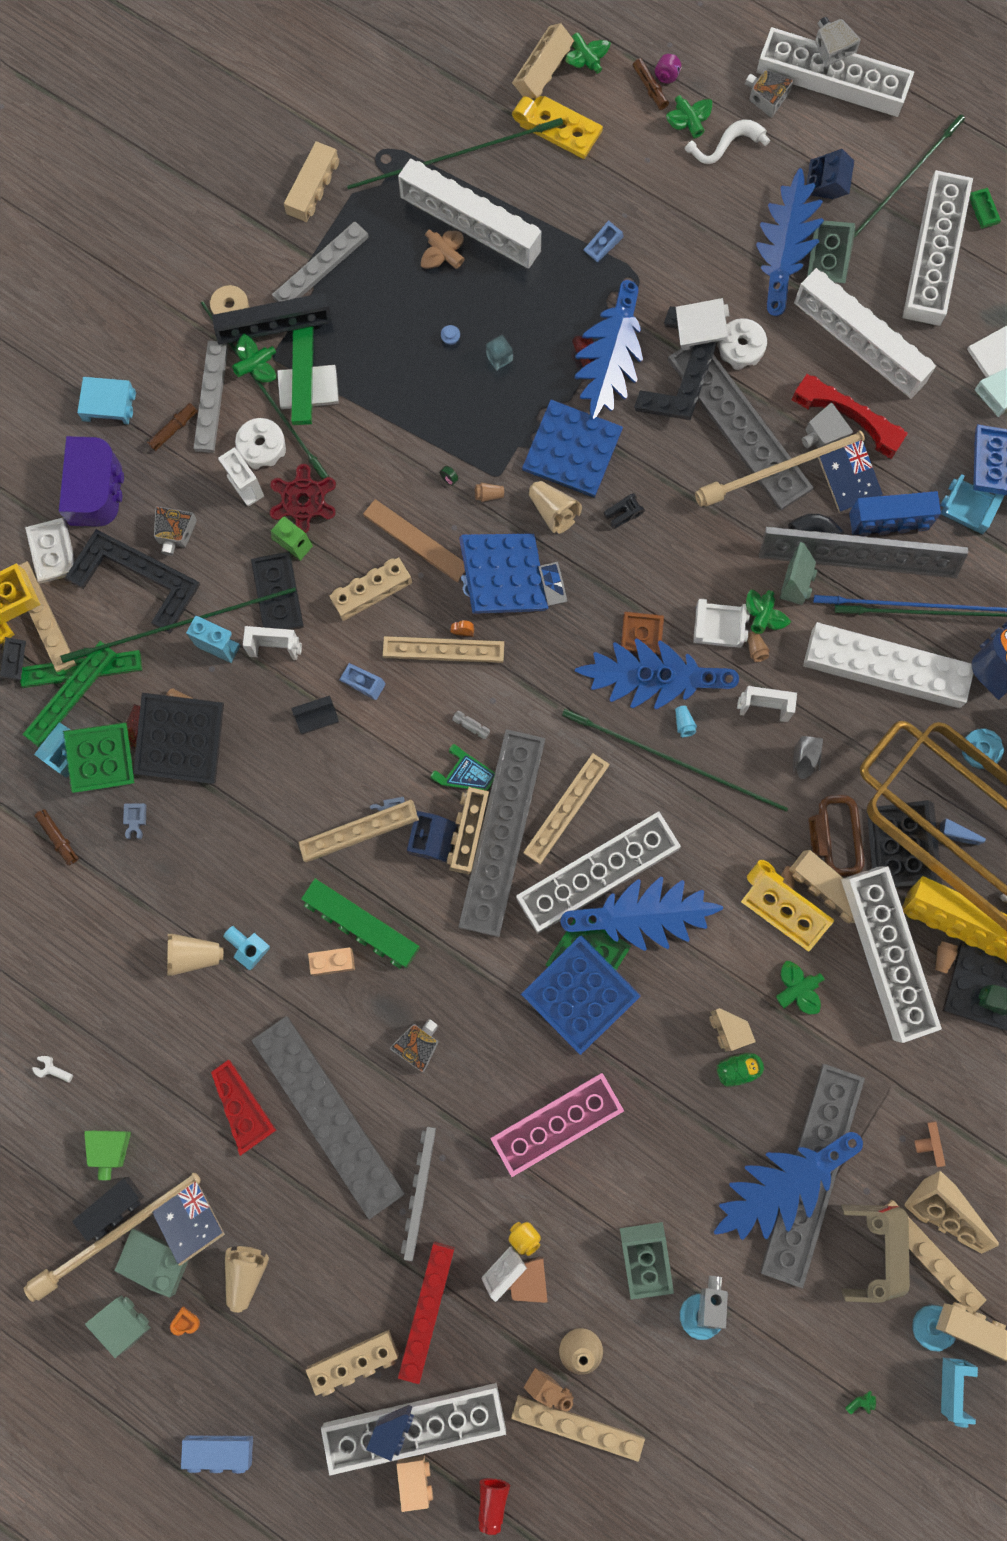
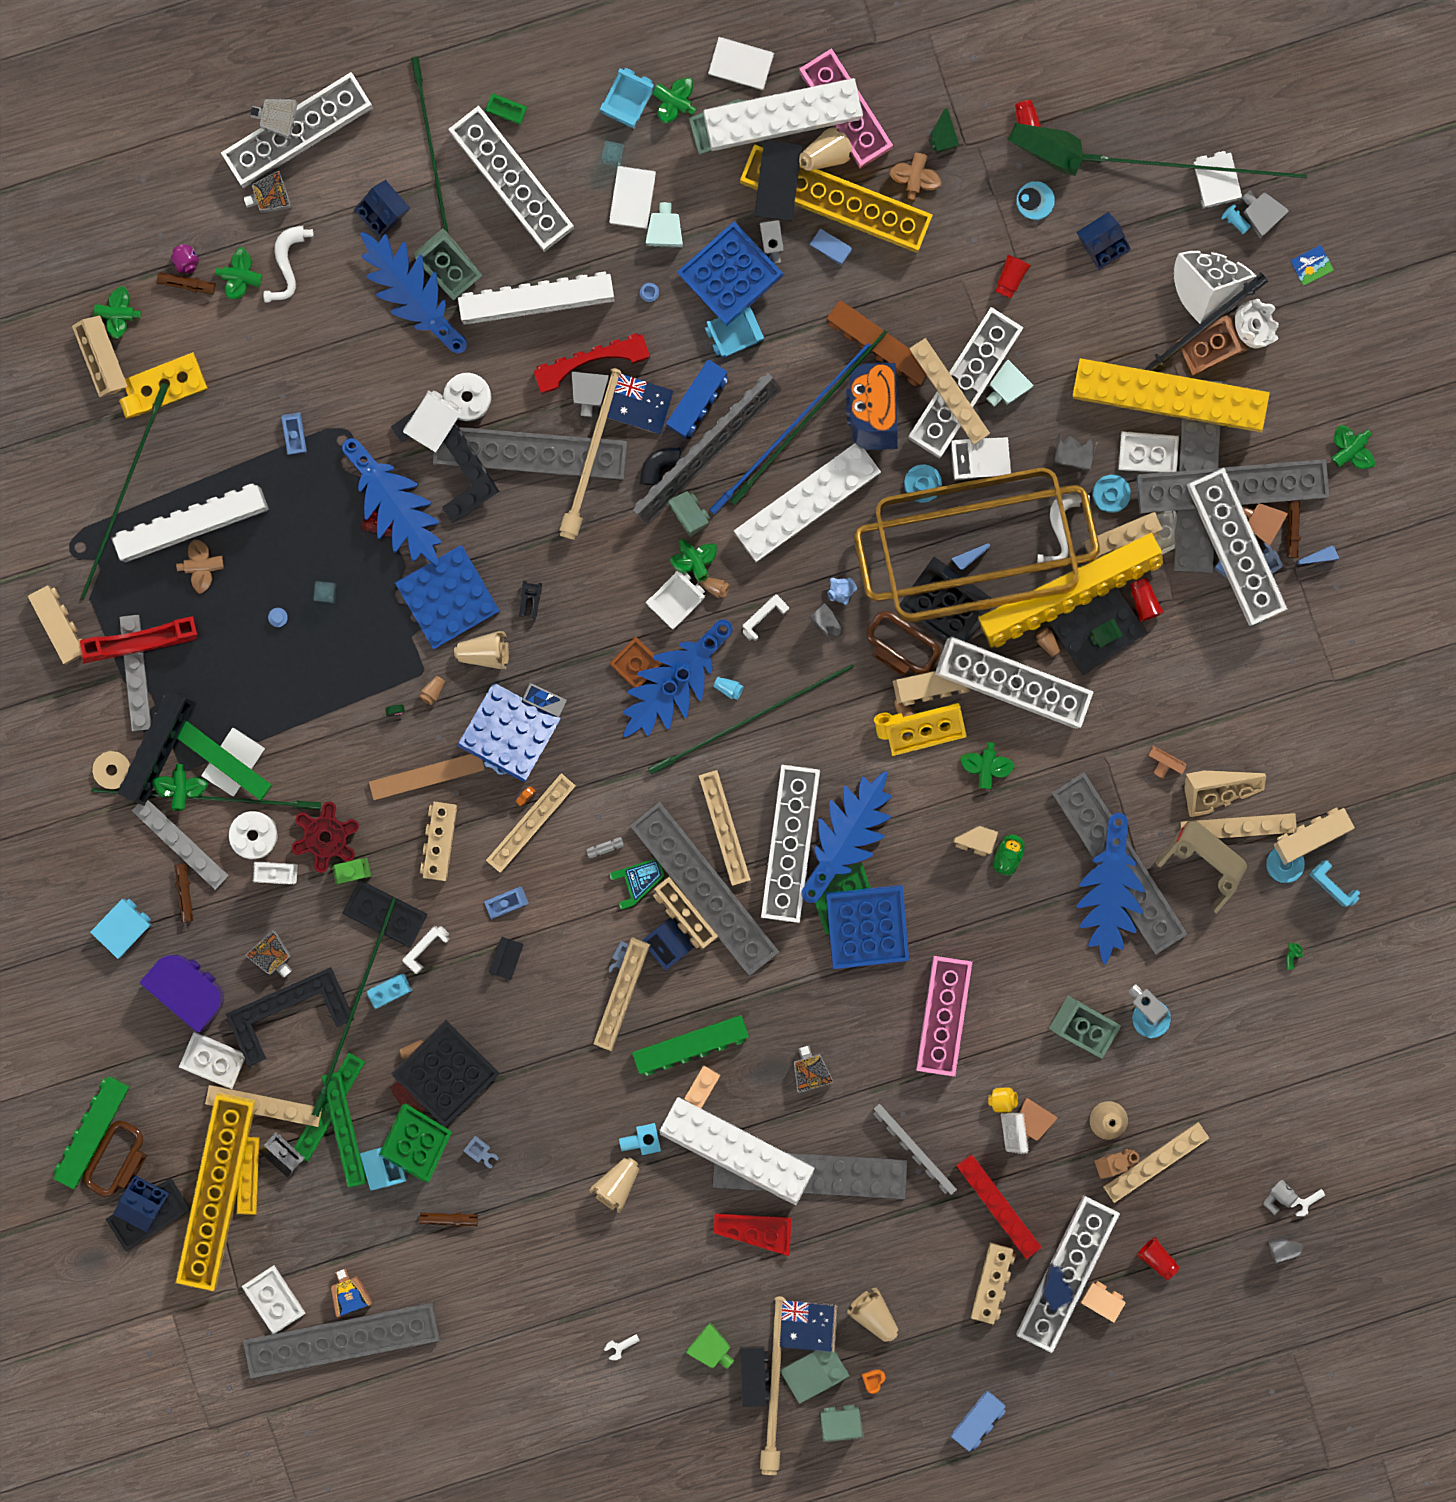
camera: 55 degrees left, 10 degrees up
(297, 1036) = (737, 1151): none -> white brick
(372, 264) = (108, 647): none -> red arch
(841, 749) = (841, 590): none -> light blue rock
(942, 417) = (649, 292): none -> medium blue plate

